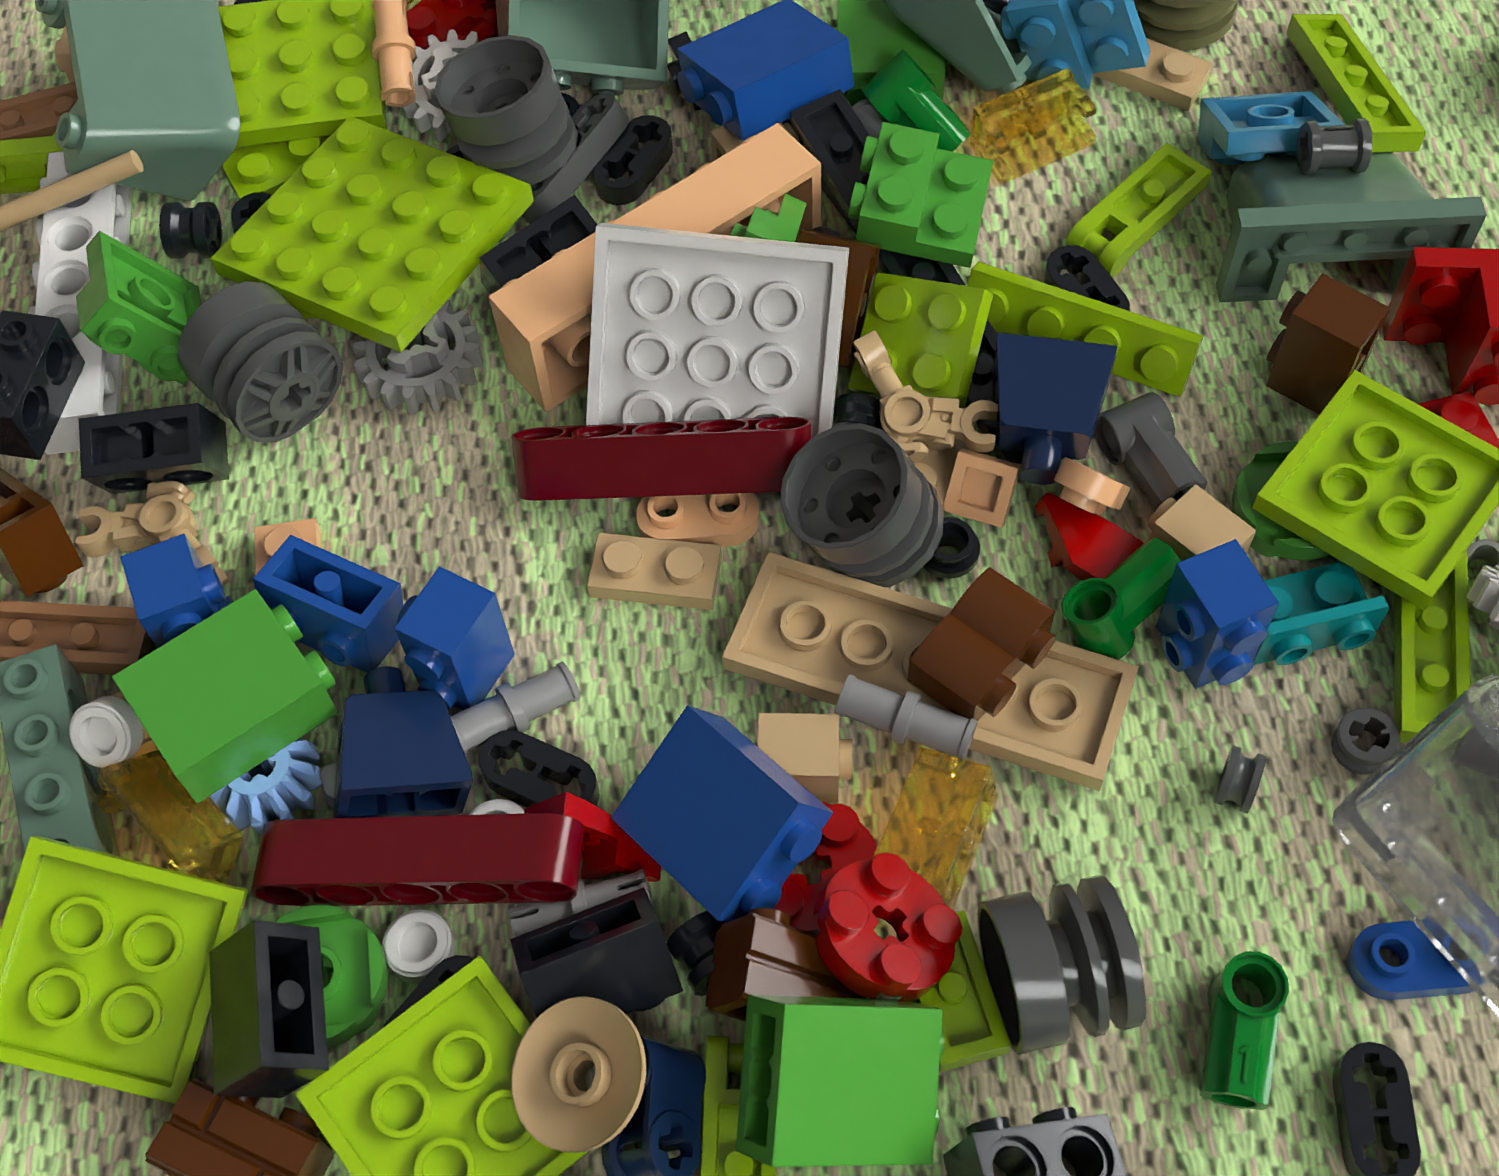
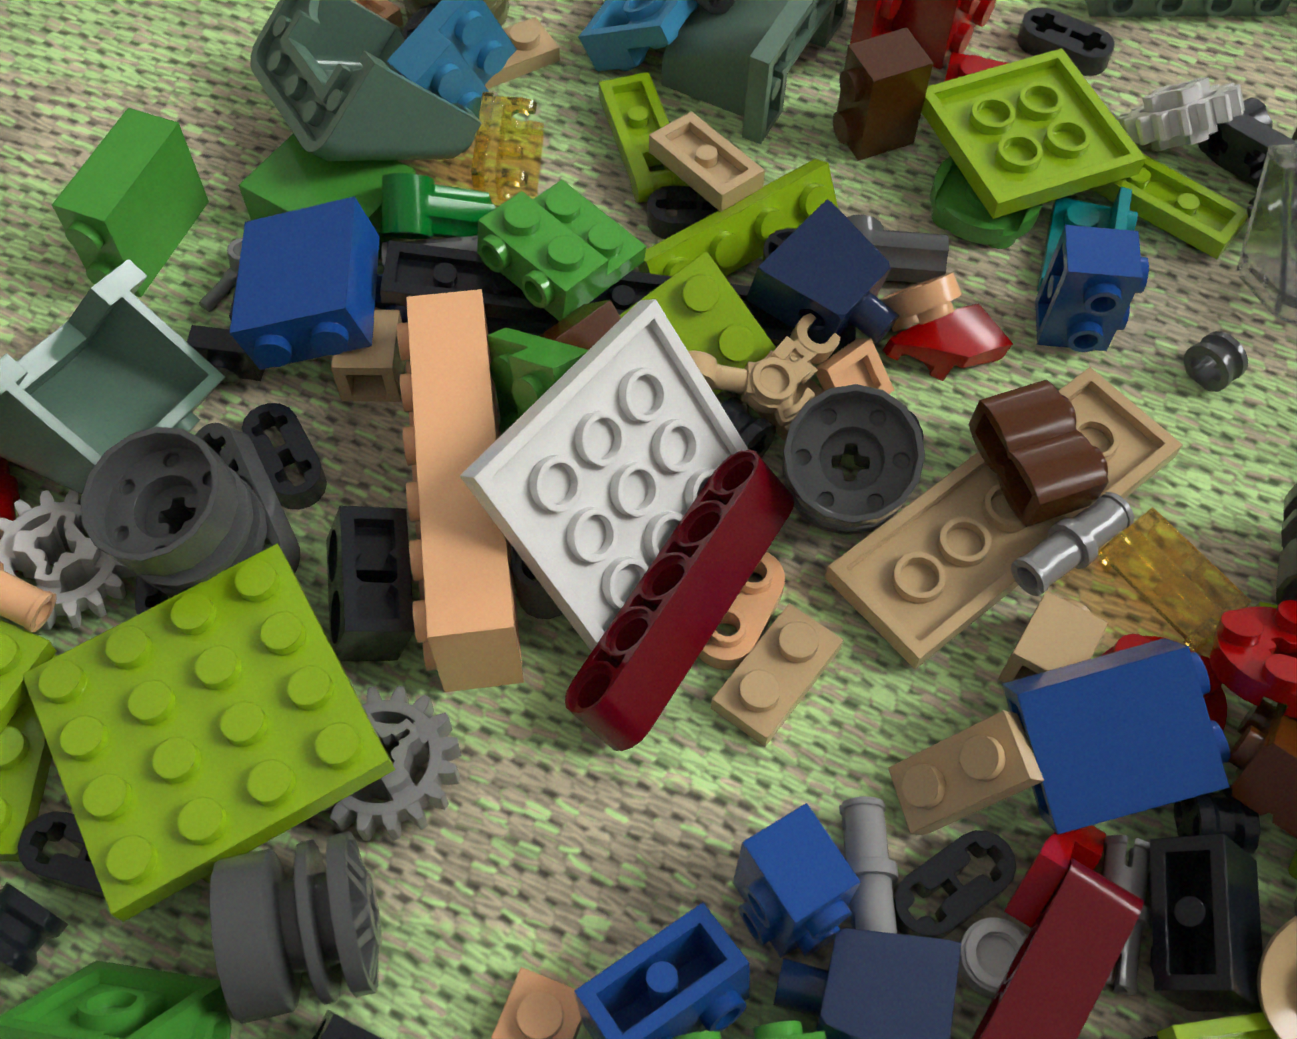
camera: 65 degrees left, 0 degrees up
(623, 725) = (965, 773): none -> tan plate
(1108, 609) = (1025, 332): green piece -> none
(1121, 255) = (706, 161): none -> tan plate
(1198, 524) = (995, 268): tan brick -> none
(1353, 724) = (1206, 287): dark grey bush -> none

